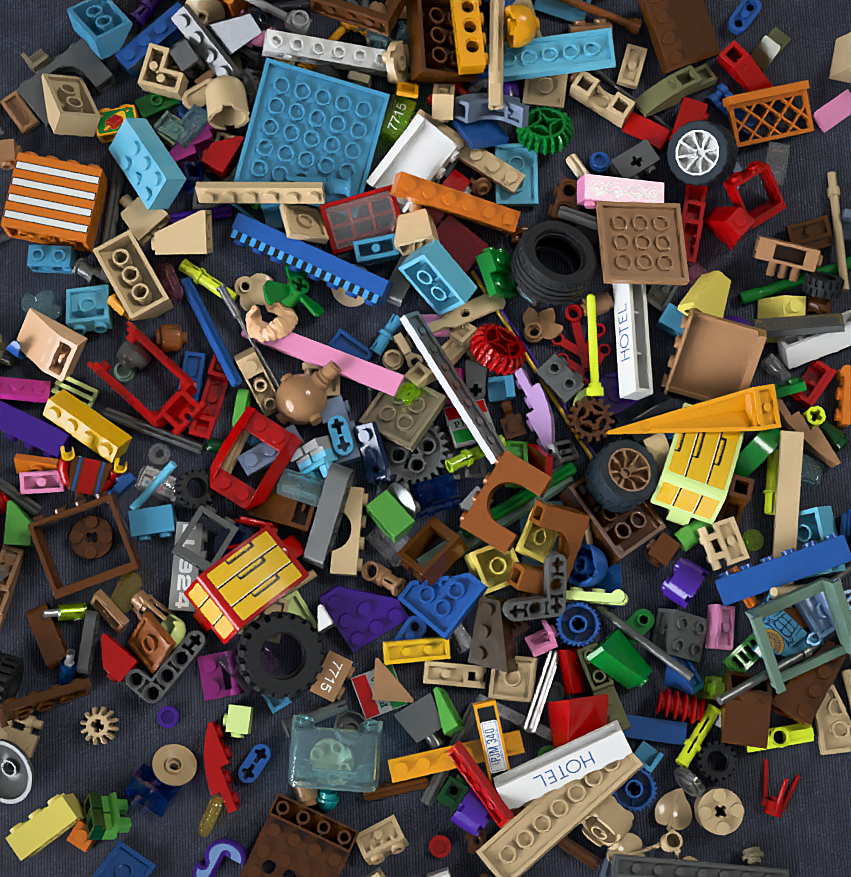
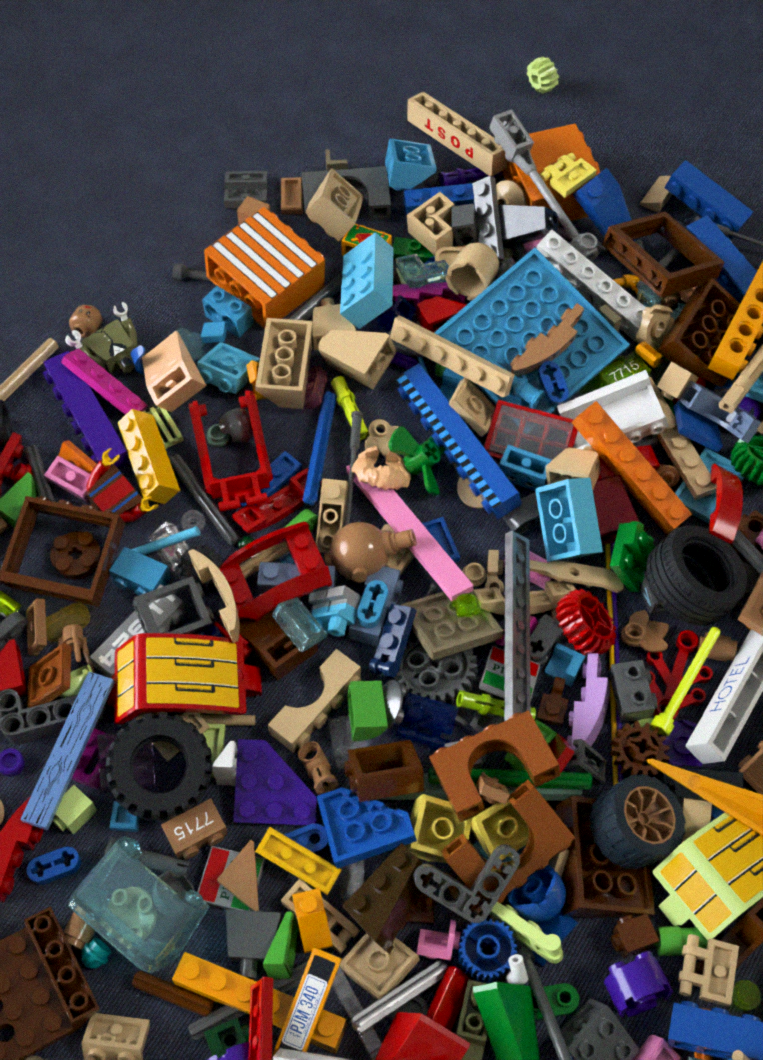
camera: 30 degrees right, 20 degrees down
(55, 284) = (214, 332): none -> dark azure tile
(89, 272) = (251, 341): dark grey connector -> none
(123, 482) = (140, 525): blue plate -> none
(170, 338) = (280, 431): dark orange head -> none
(206, 492) = (208, 570): none -> tan slope
(207, 684) = (67, 751): none -> medium blue tile
(328, 515) = (306, 668): beam -> none
(329, 144) = (550, 347): none -> medium nougat slope
(355, 161) = (548, 385): none -> blue beam
(386, 335) = (481, 549): dark azure pin -> none
(453, 682) = (312, 920): none -> light orange slope
(515, 521) = (492, 790): none -> medium nougat plate
(540, 182) = (729, 504): none -> red slope
(606, 627) = (517, 972): none -> white arm

